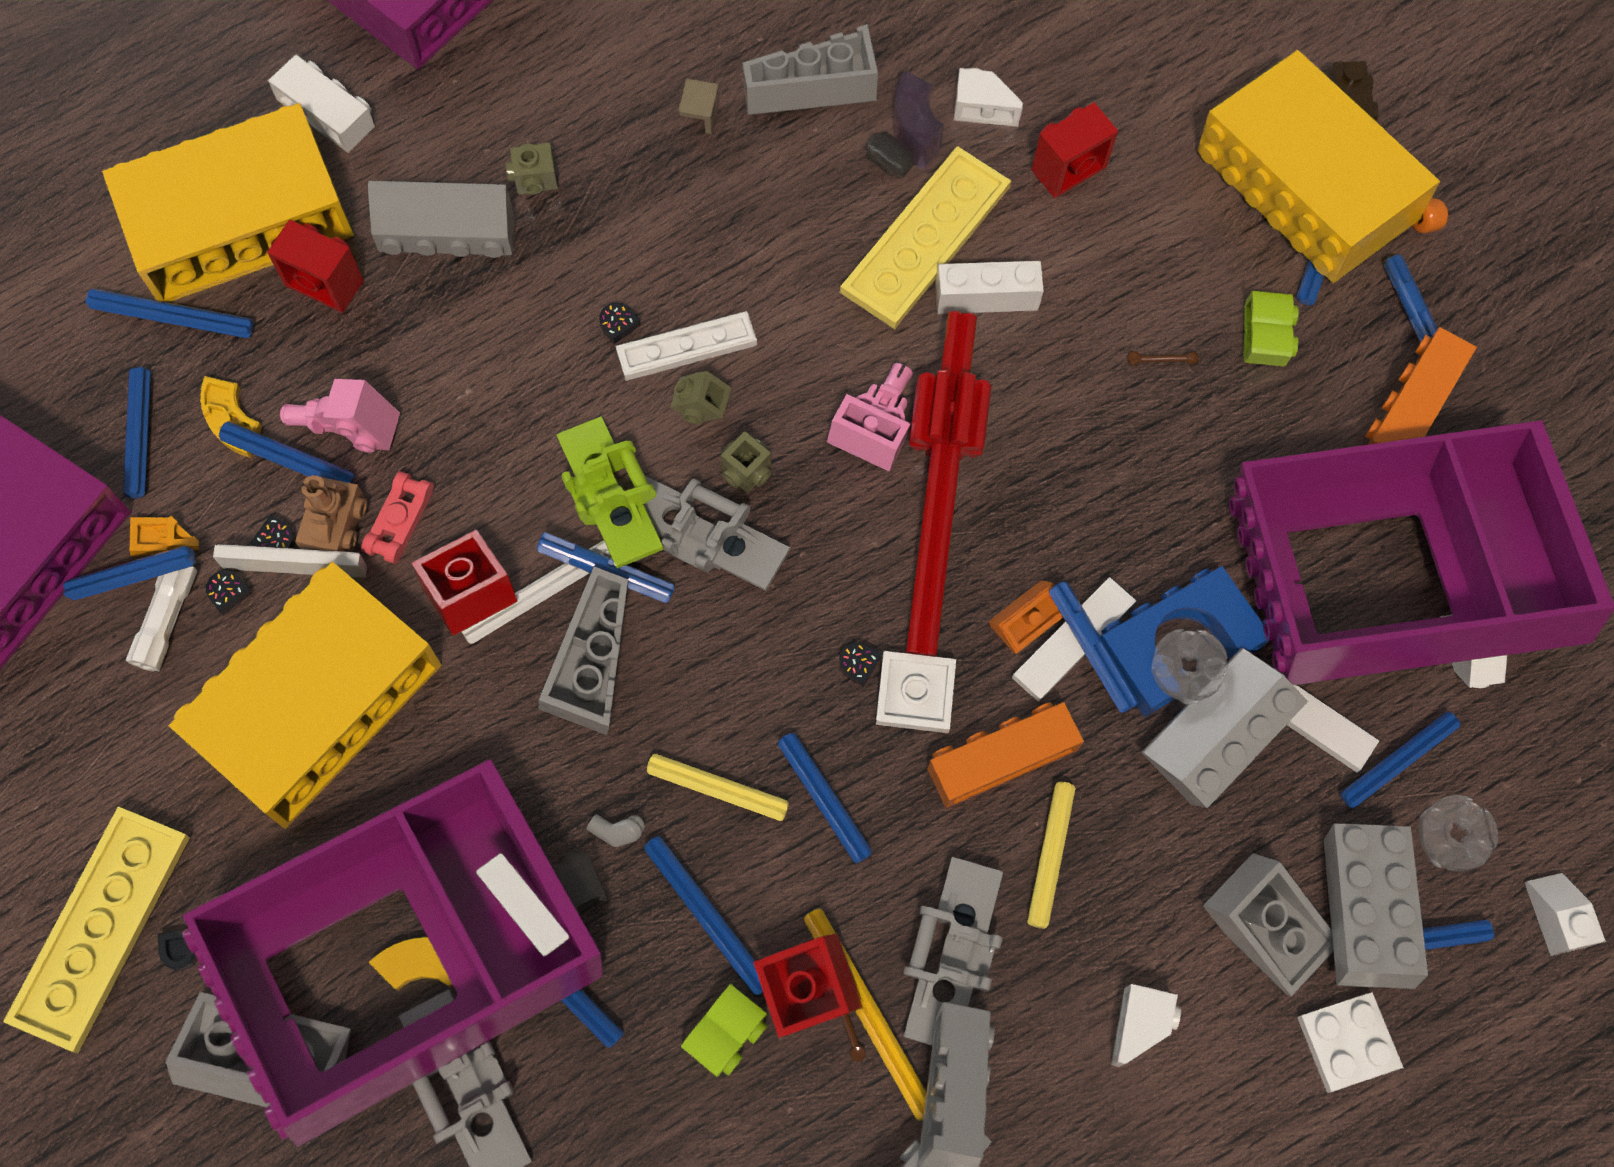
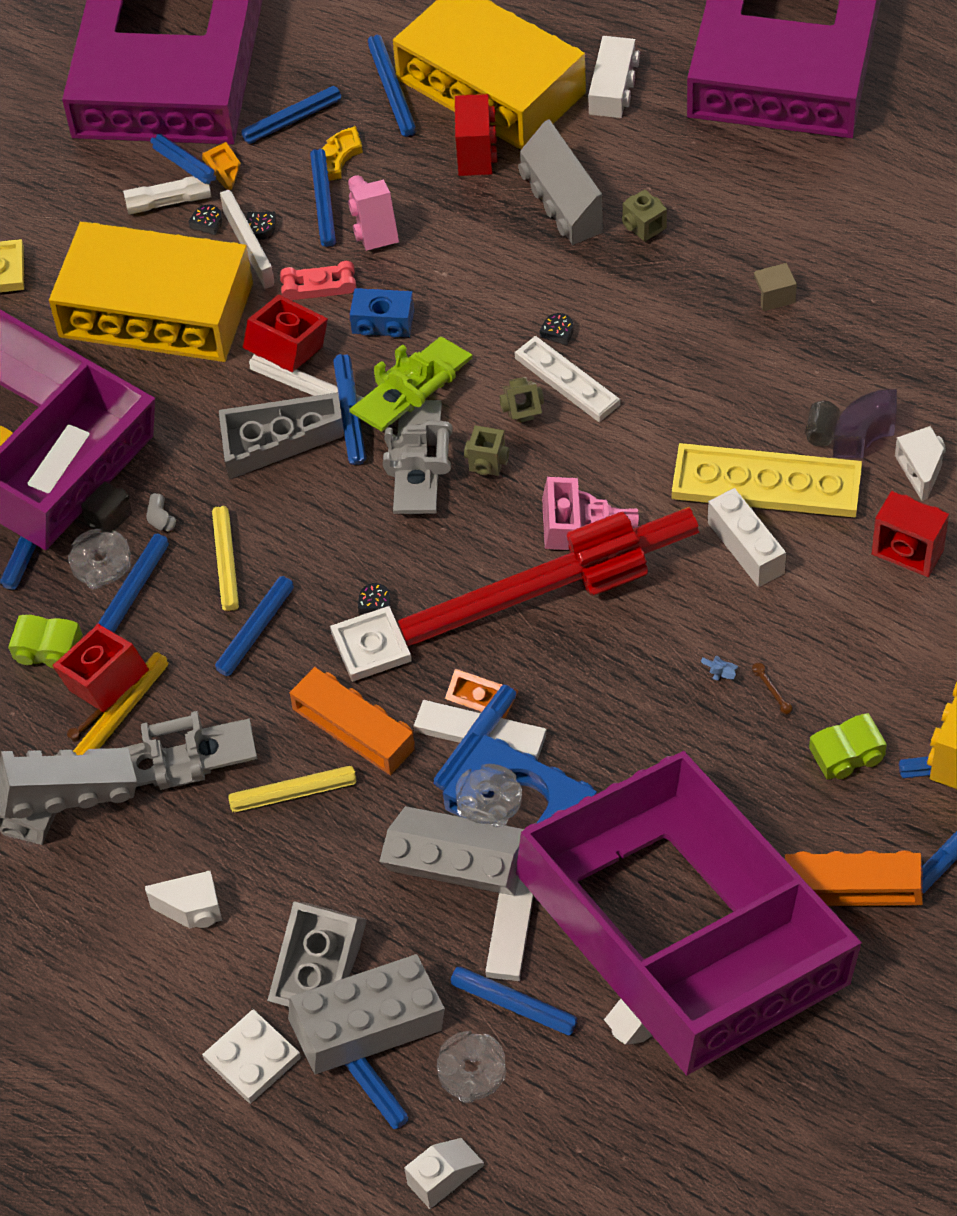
camera: 70 degrees right, 15 degrees down
(330, 515) = (292, 239): medium nougat brick -> none
(491, 456) = (382, 312): none -> blue brick
(622, 906) = (104, 571): none -> clear plate
(813, 75) = (854, 341): light grey wedge -> none
(1122, 387) = (720, 668): none -> medium blue plant

